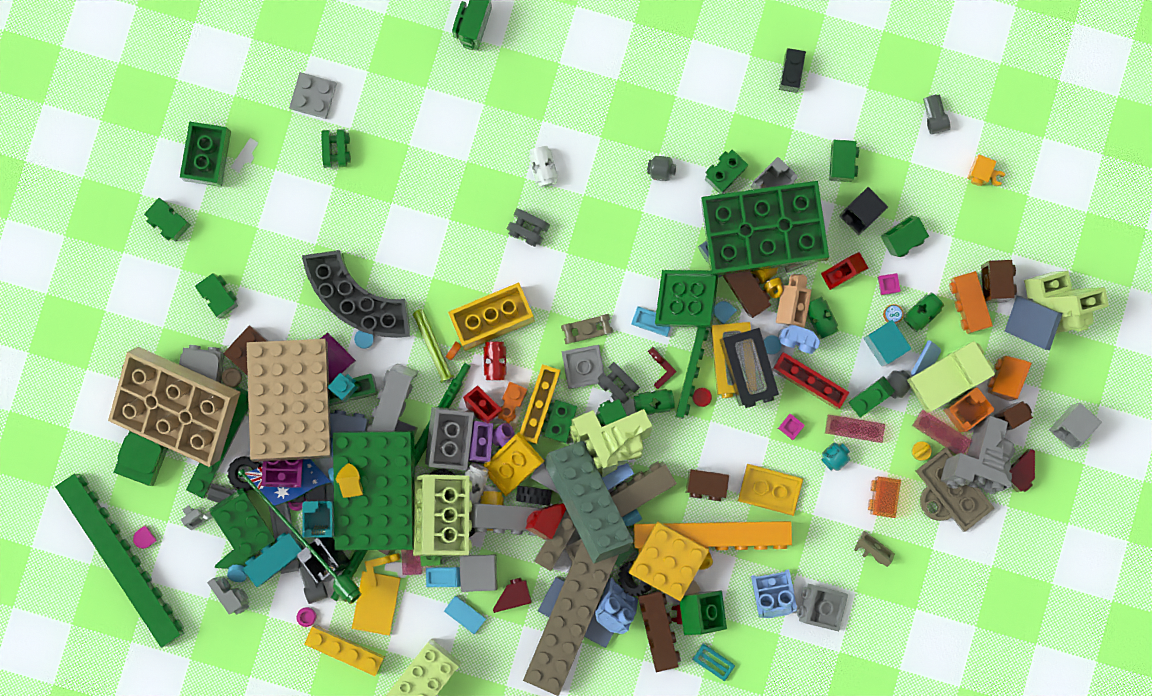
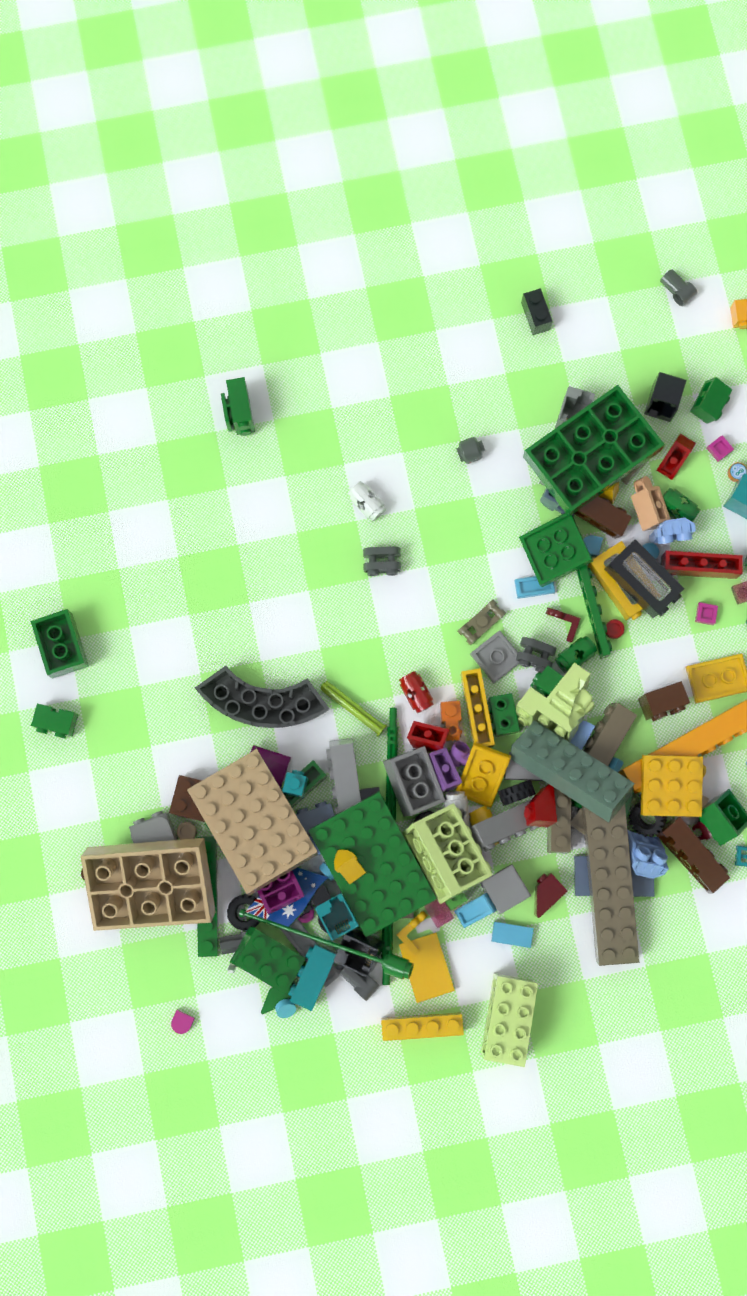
camera: 30 degrees left, 5 degrees down
(120, 560) = (170, 1054): green brick -> none
(140, 459) = (141, 950): green brick -> none
(193, 517) = (218, 978): light grey tile -> none
(220, 298) = (141, 766): green brick -> none
(232, 600) = (295, 1035): light grey plate -> none
(245, 155) = (95, 628): white sticker -> none
(306, 617) = (369, 1014): dark pink tile -> none
(312, 95) = (129, 544): light grey plate -> none
(342, 156) = (184, 582): green brick -> none
(363, 339) = (288, 734): medium azure tile -> none
(453, 351) = (374, 702): orange tile -> none
(491, 316) = (392, 654): yellow brick -> none
(726, 171) = (528, 424): green brick -> none
(772, 286) = (623, 499): yellow tile -> none
(843, 160) = (623, 364): green brick -> none

